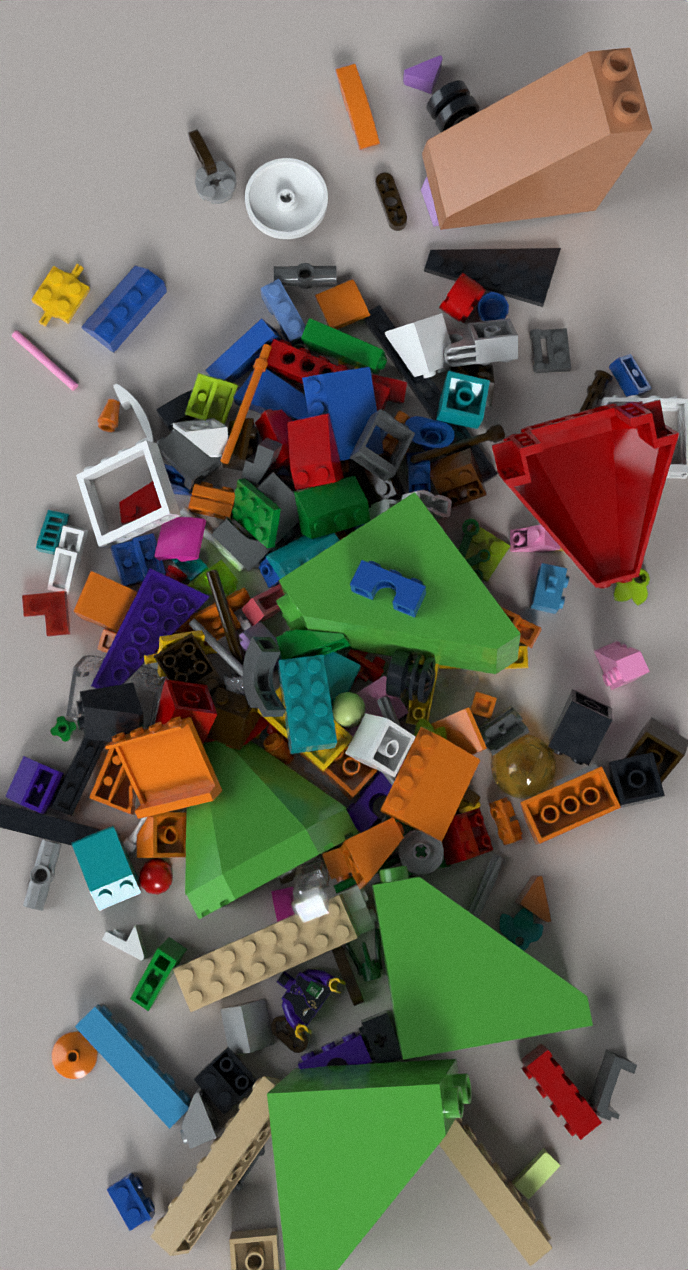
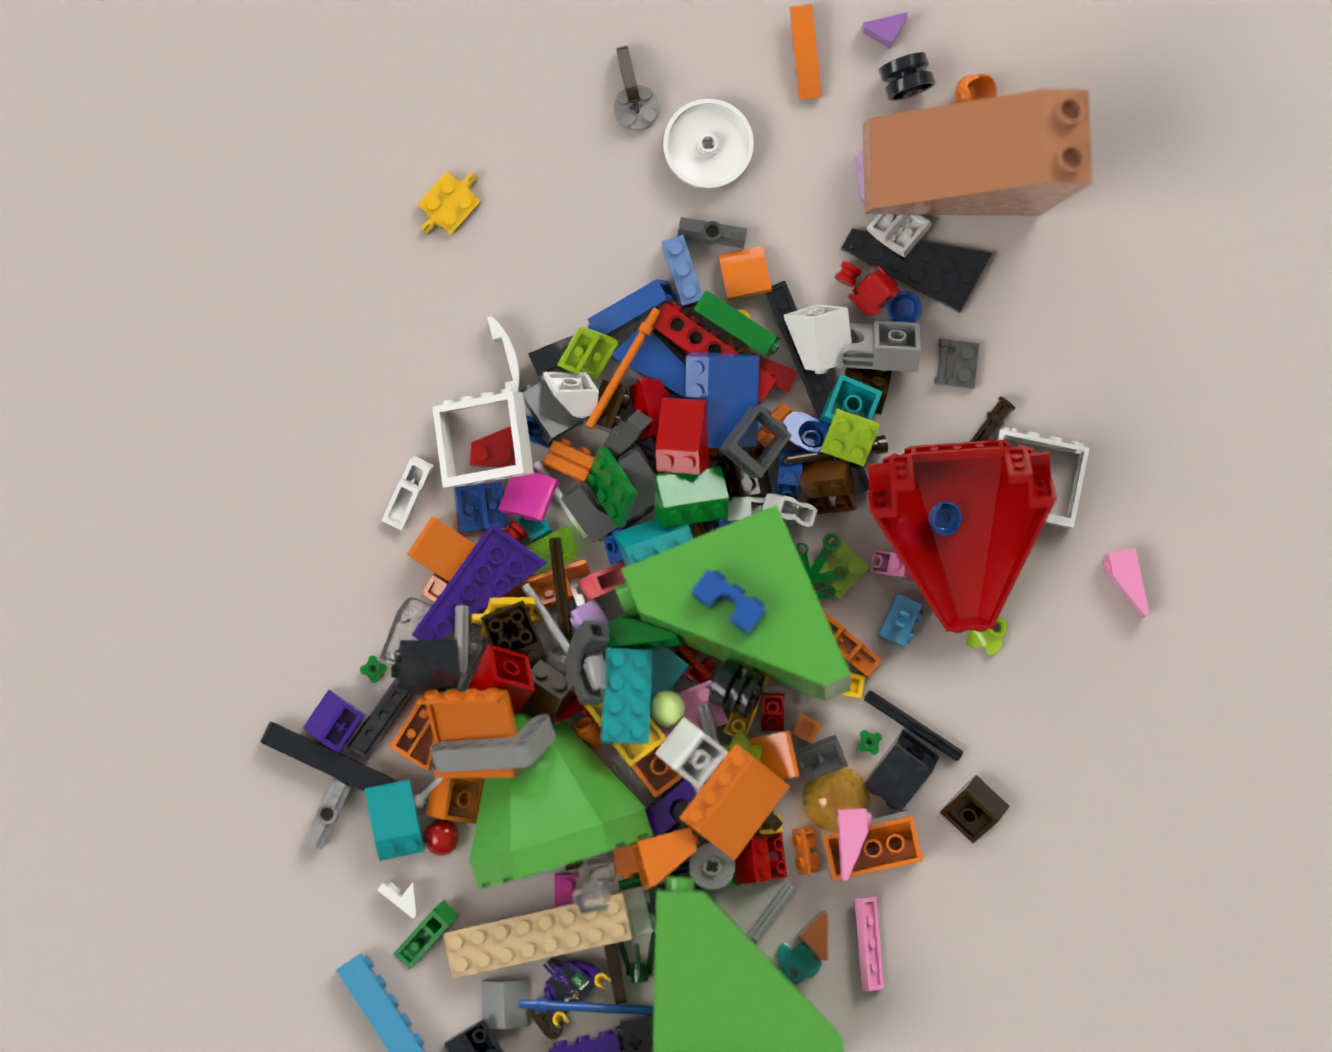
camera: 10 degrees right, 5 degrees up
(41, 546) = (386, 464): teal slope -> none
(45, 360) = (418, 270): bright pink bar -> none
(53, 606) = (384, 540): clear red plate -> none
(85, 1053) = (340, 995): orange dish -> none
(110, 416) = (477, 348): orange cone -> none
(125, 307) = (513, 230): blue slope -> none
(139, 678) = (461, 636): none -> light grey axle
(190, 780) = (498, 752): none -> light grey beam
(272, 682) = (596, 672): none -> light grey cone
(282, 1020) = (543, 1005): none -> blue bar
(389, 210) = (812, 149): dark brown beam -> none
(435, 289) = (848, 274): none -> red wheel
(448, 694) = (772, 711): none -> red slope
(469, 425) = (850, 437): none -> lime plate
(473, 242) = (899, 231): none -> white slope
(539, 711) = (864, 746): none -> green plate
(548, 792) = (852, 832): none -> bright pink slope
(571, 484) = (945, 518): none -> blue hair
(582, 683) = (913, 725): none -> black axle
(585, 898) = (869, 943): none -> bright pink plate
(620, 664) = (954, 713): bright pink wedge -> none
(629, 376) = (1035, 408): blue slope -> none
(635, 780) = (945, 836): black slope -> none

